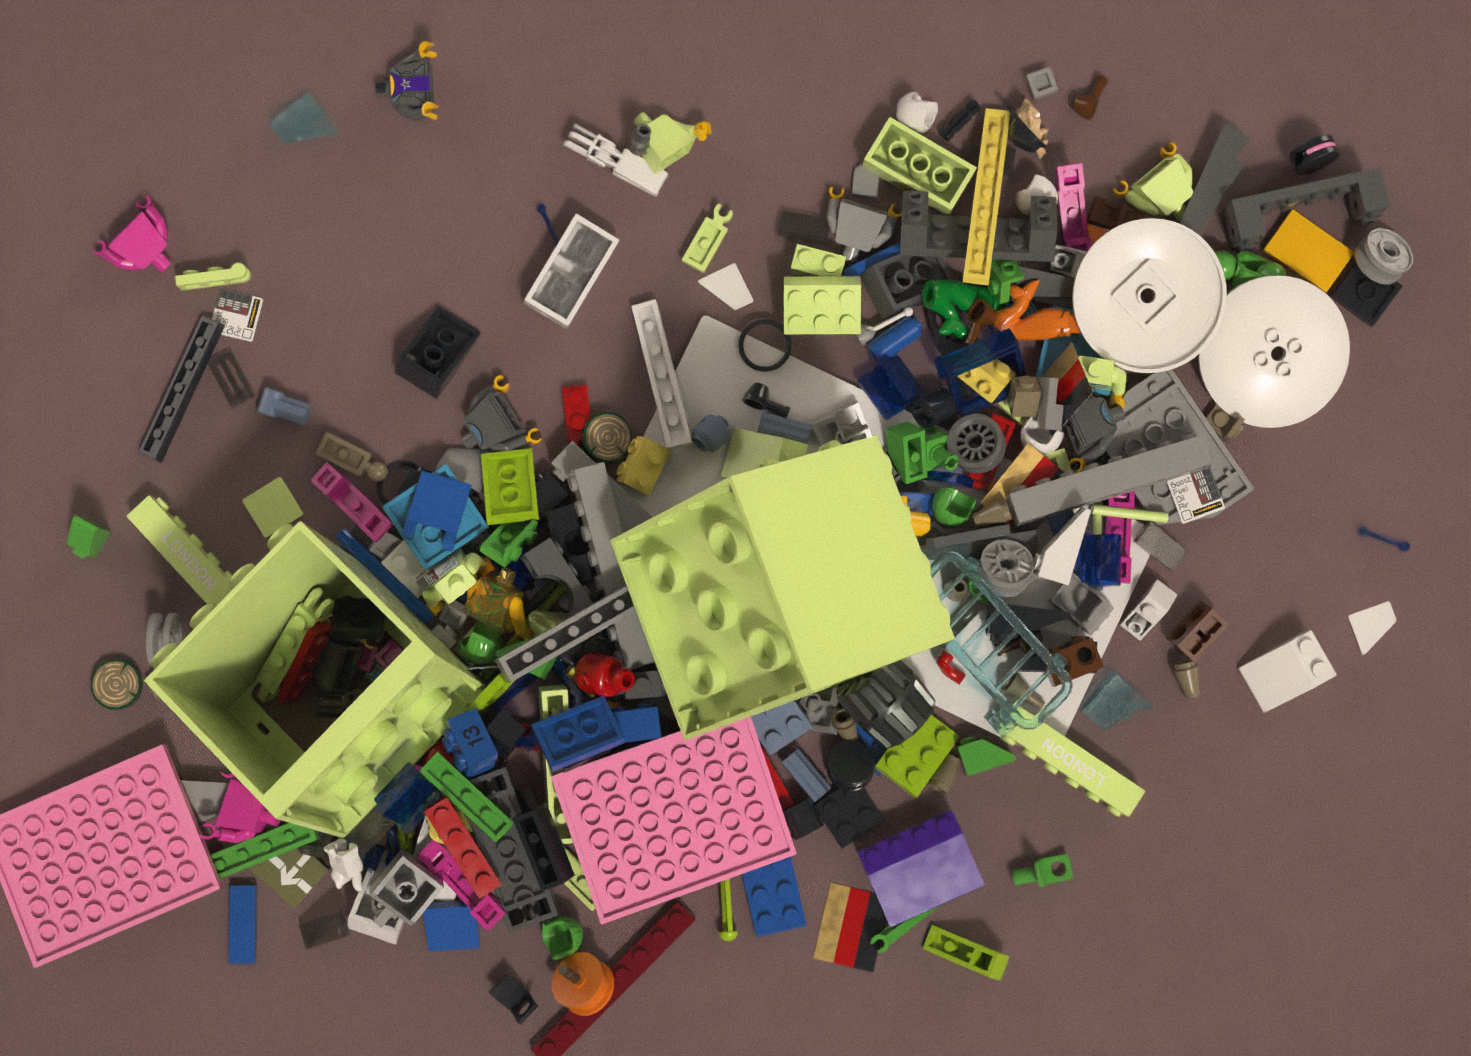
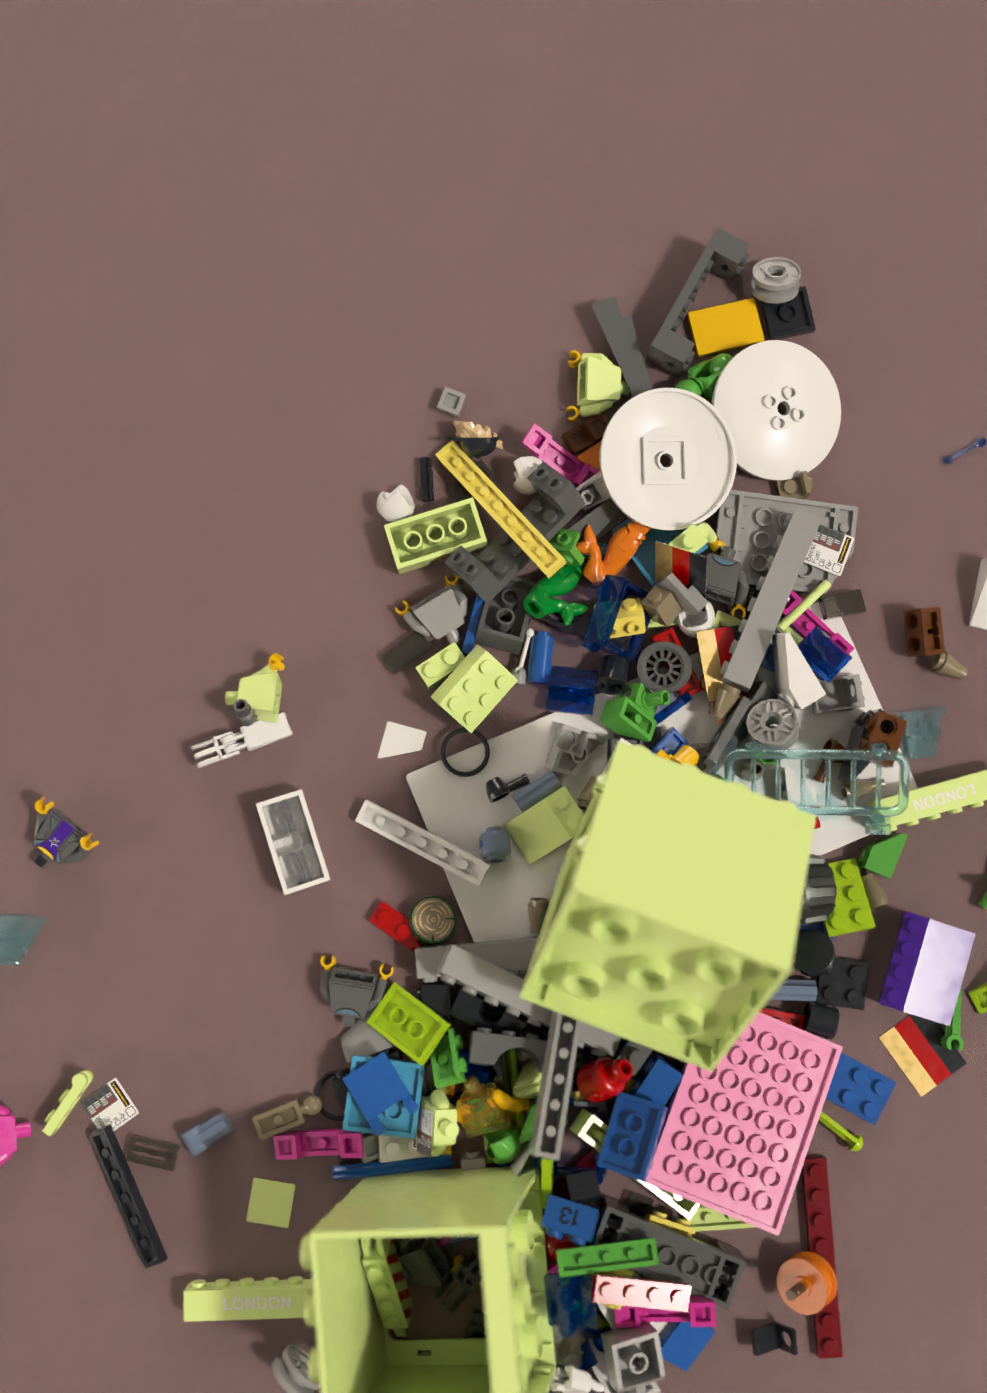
camera: 50 degrees left, 0 degrees up
(86, 537) = (173, 1362): bright green slope -> none
(304, 662) = (405, 1287): red plate -> none
(436, 352) = (265, 987): black slope -> none
(453, 615) = (464, 1143): light grey plate -> none
(541, 208) = (229, 823): clear blue hinge -> none
(543, 847) = (690, 1230): black brick -> none
(562, 936) = (760, 1266): bright green hair -> none
(642, 465) = (474, 913): light yellow bracket -> none
(707, 241) = (356, 727): yellowish green plate -> none
(864, 183) = (412, 582): light grey tile -> none
(952, 507) = (694, 723): bright green hair -> none
(979, 314) = (577, 585): reddish brown bar -> none
(1032, 617) = (820, 738): black slope -> none
(1087, 104) = (492, 386): reddish brown bar -> none
(1149, 610) = (879, 650): white slope -> none
(1314, 154) = (665, 264): black head -> none

